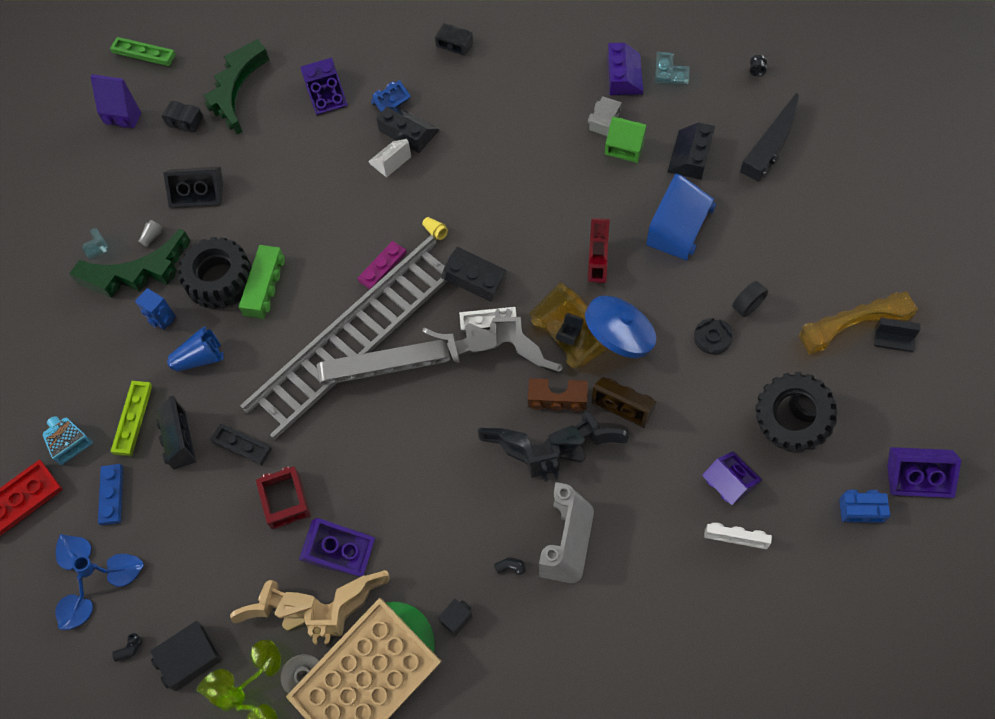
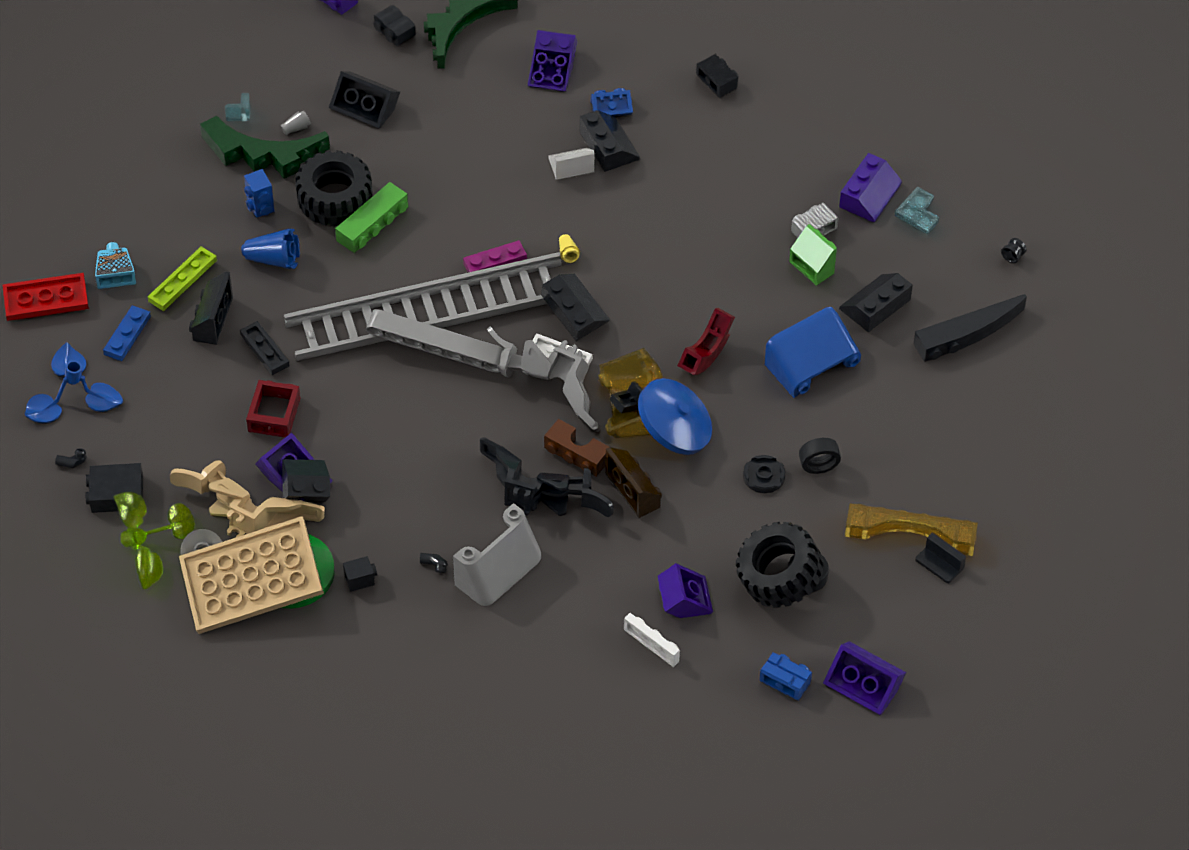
camera: 25 degrees right, 10 degrees down
(354, 554) = (305, 480): none -> black slope

